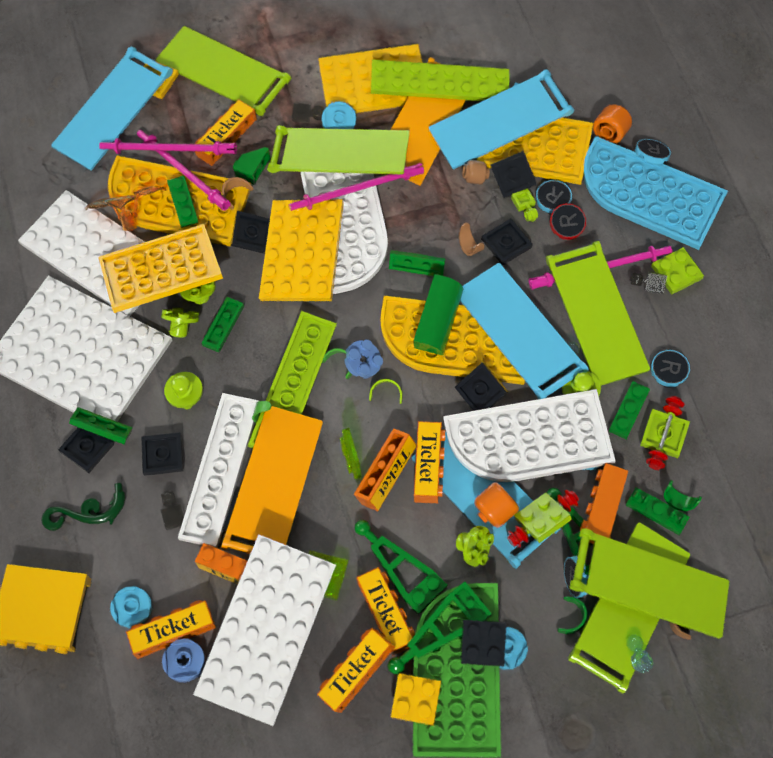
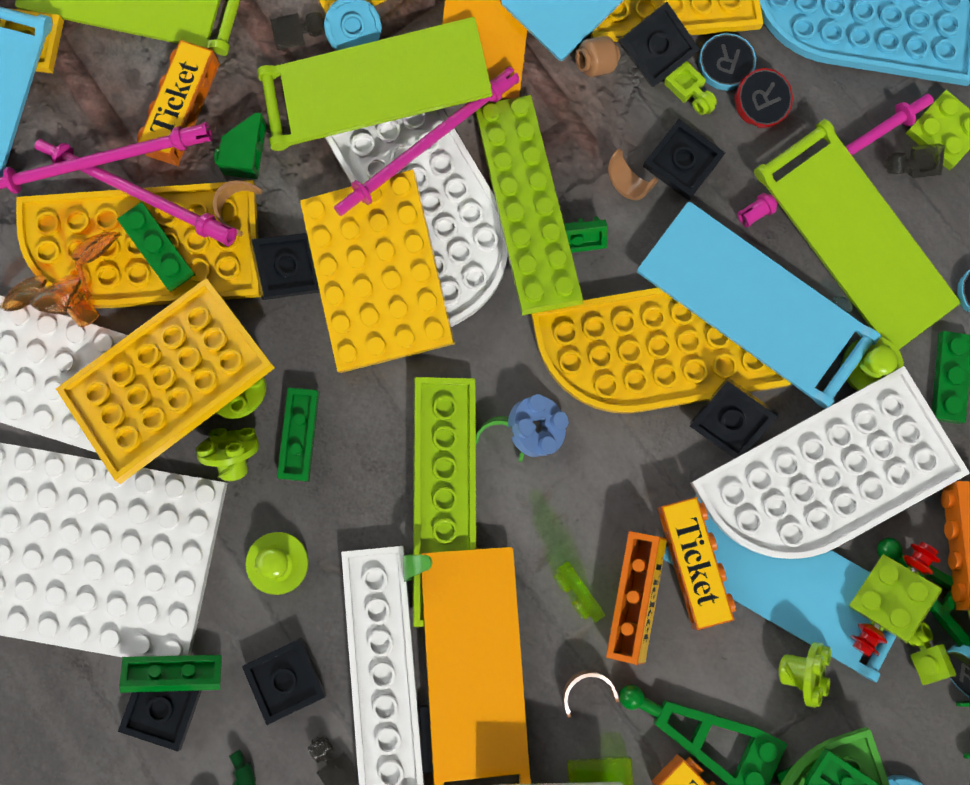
camera: 25 degrees left, 15 degrees up
(336, 506) = (584, 674): none -> helmet
(383, 381) = (581, 448): lime helmet -> none
(401, 238) = (528, 206): none -> lime plate
(438, 315) = (629, 319): green brick -> none
(495, 505) = (822, 604): orange head -> none
(555, 564) = (931, 662): none -> lime plate

